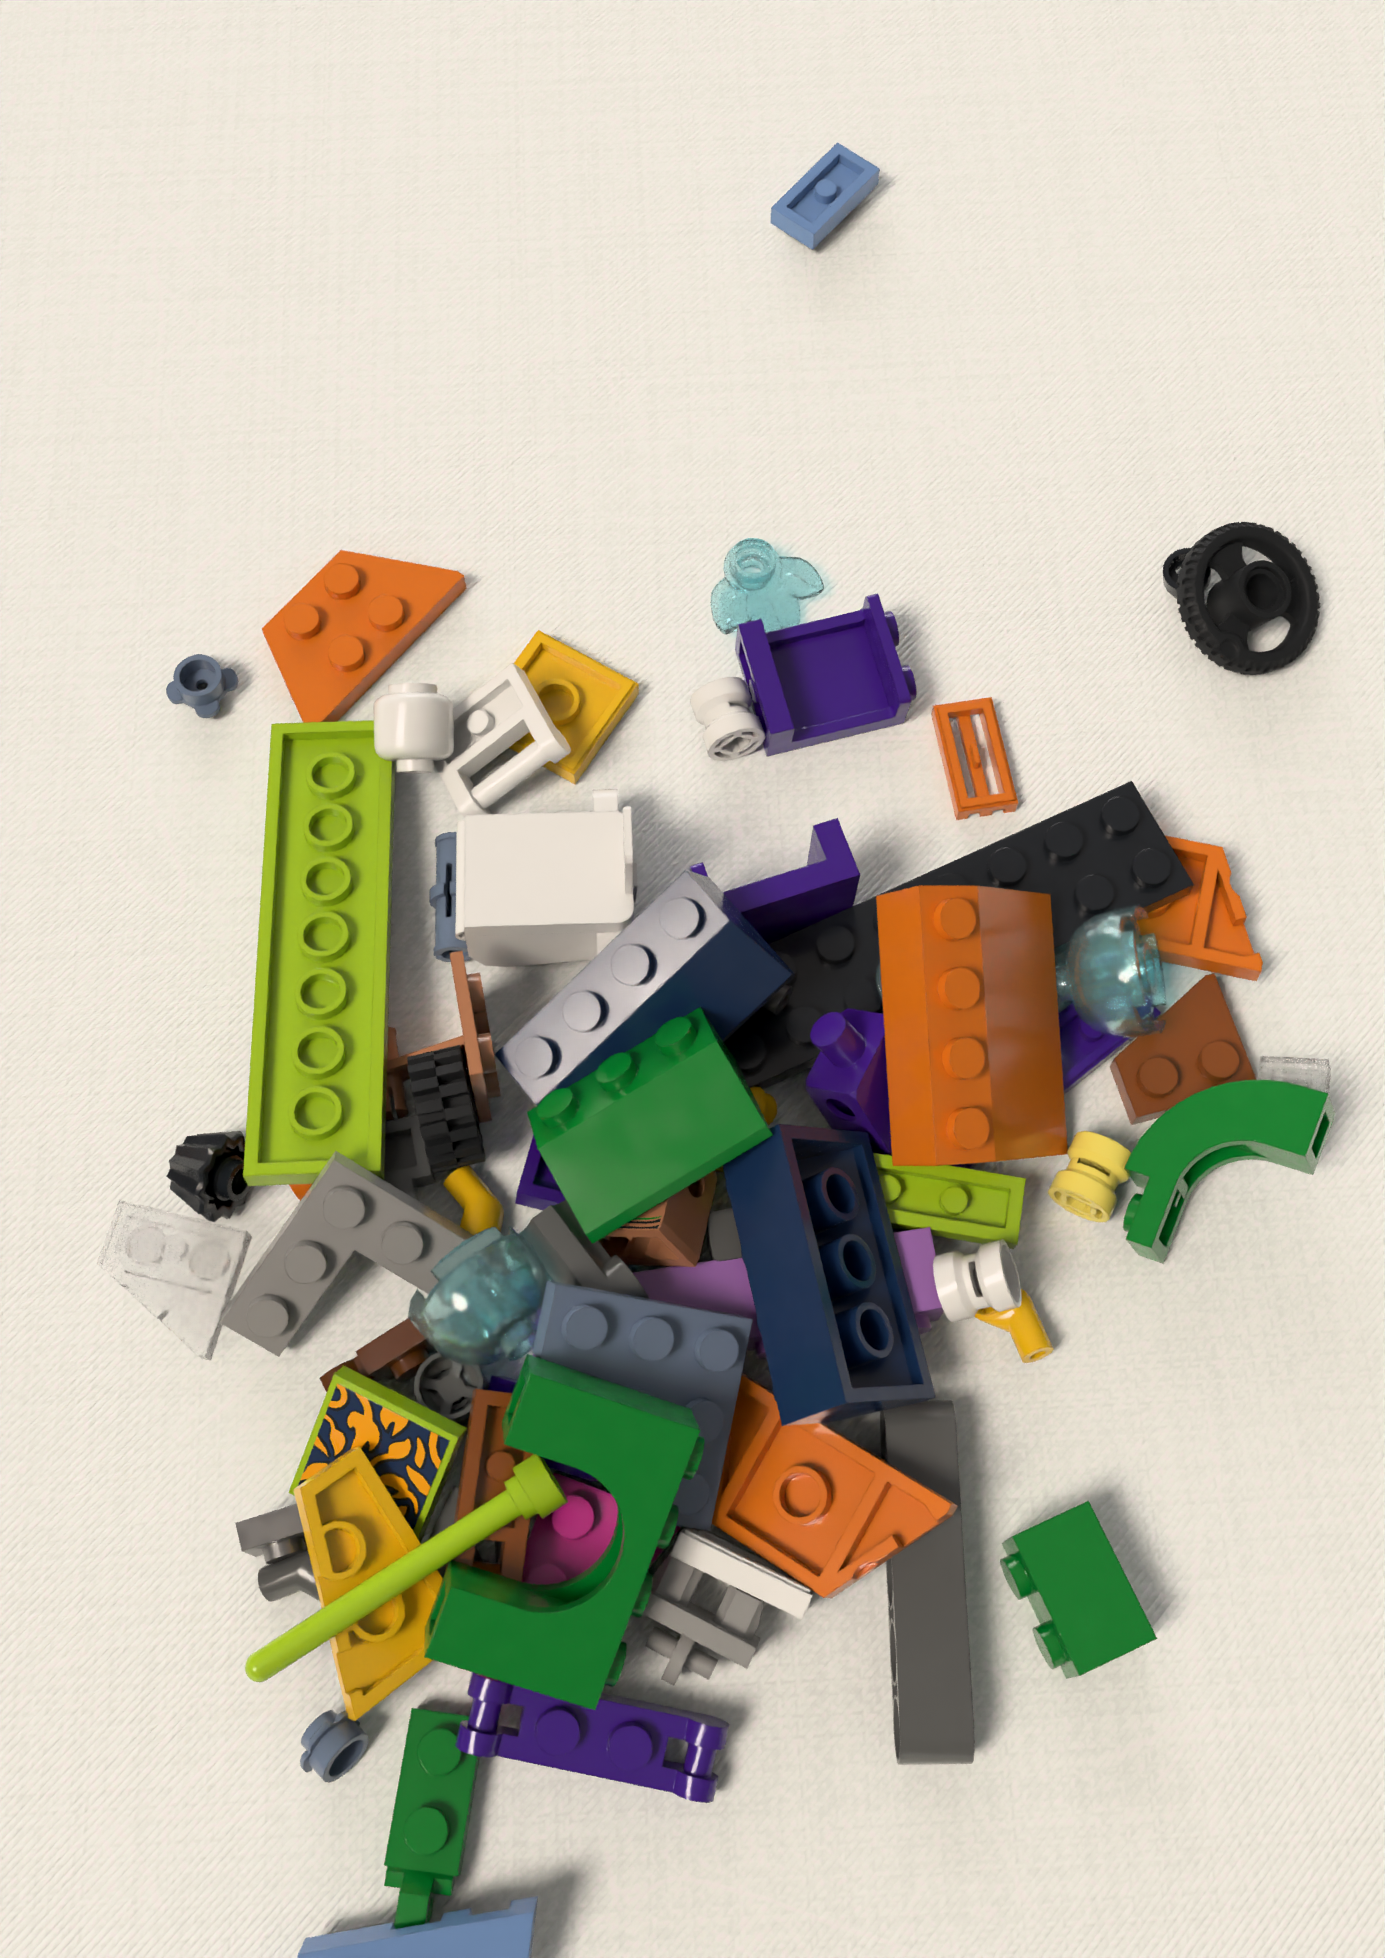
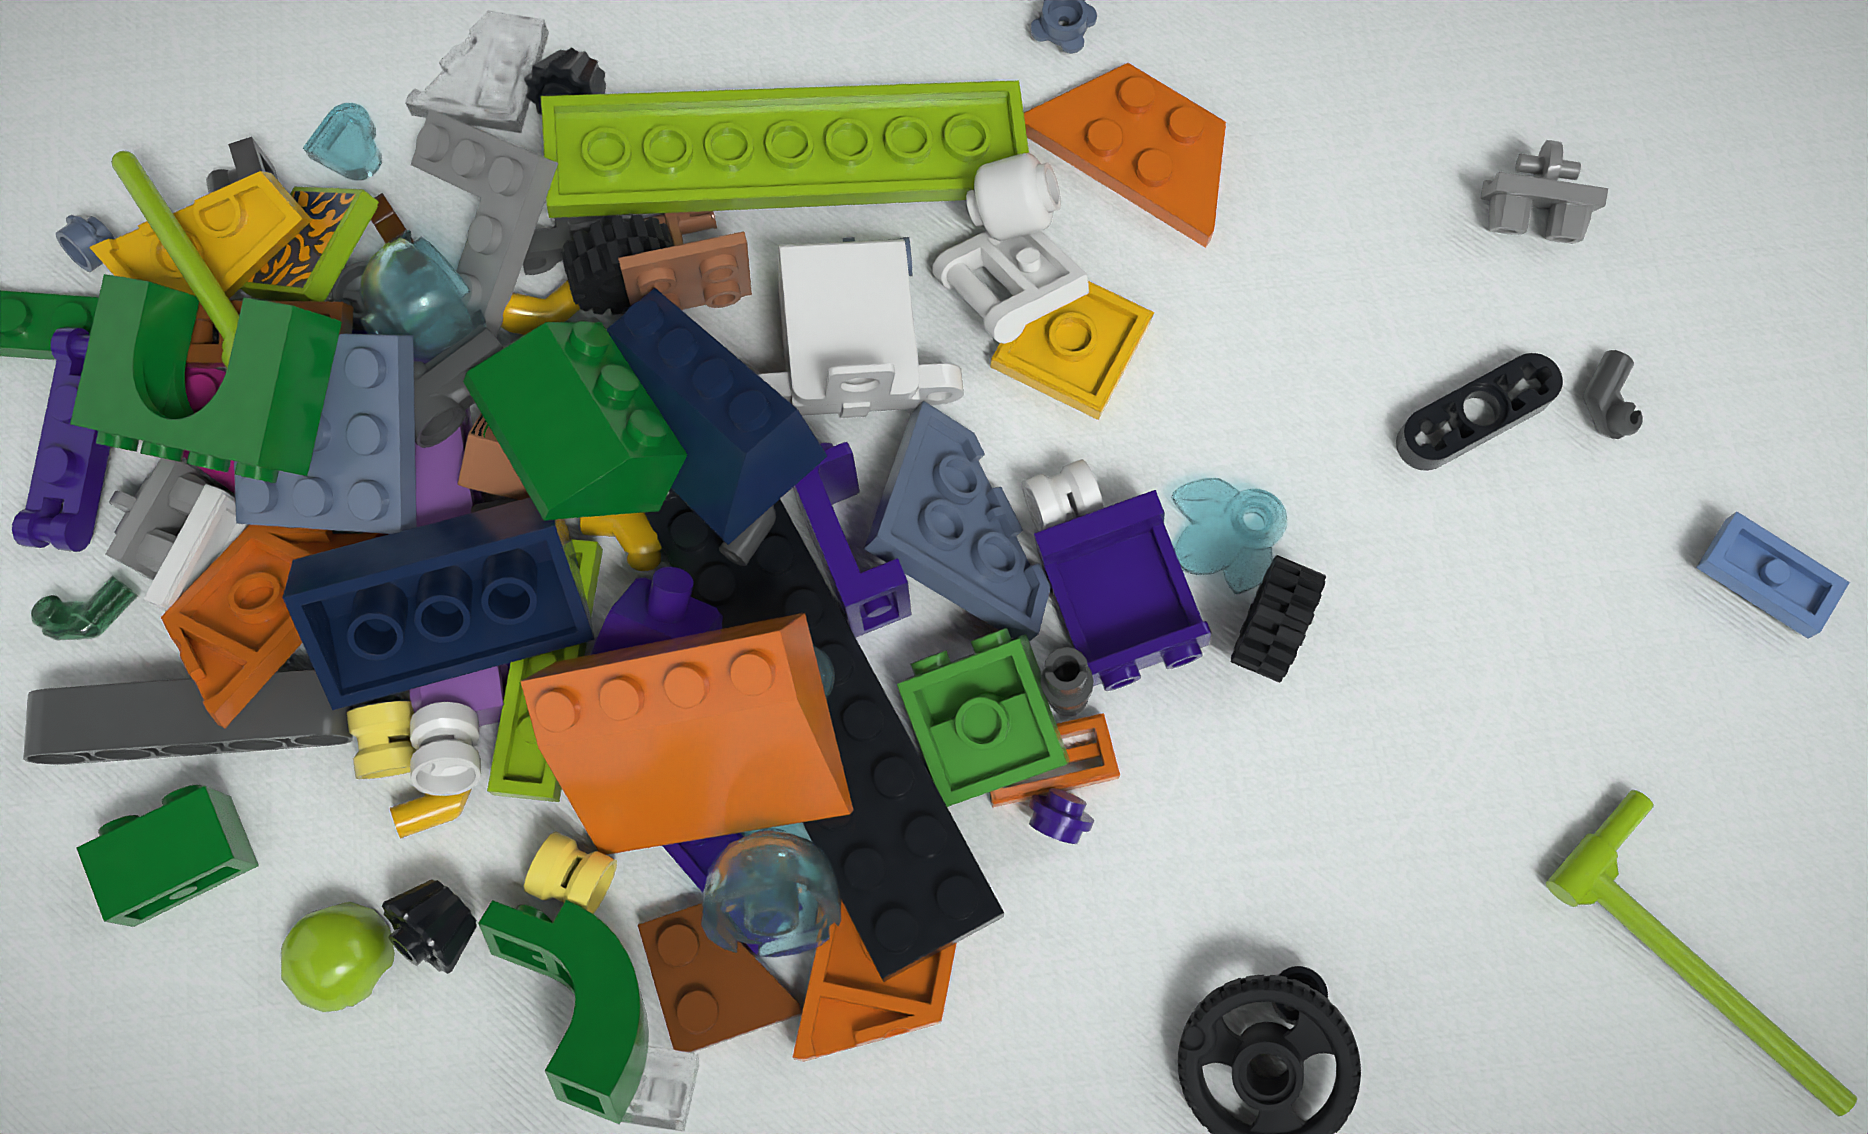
camera: 85 degrees right, 5 degrees up
(237, 1435) = (346, 143): none -> clear light blue tile
(435, 296) = (1568, 202): none -> light grey hips
(654, 291) = (1604, 401): none -> dark grey arm
(659, 407) = (1490, 388): none -> black beam
(753, 811) = (956, 527): none -> sand blue plate
(804, 1716) = (82, 618): none -> clear green arm
(860, 545) = (1278, 618): none -> black tyre
(918, 715) = (1067, 681): none -> dark grey pin
(941, 793) = (982, 717): none -> bright green plate
(961, 1360) = (382, 739): none -> light yellow wheel
(1031, 744) = (1060, 816): none -> dark purple plate
(1082, 361) = (1590, 876): none -> lime bar
(1144, 1310) = (430, 925): none -> black piece
(1171, 1414) = (336, 956): none -> lime hair

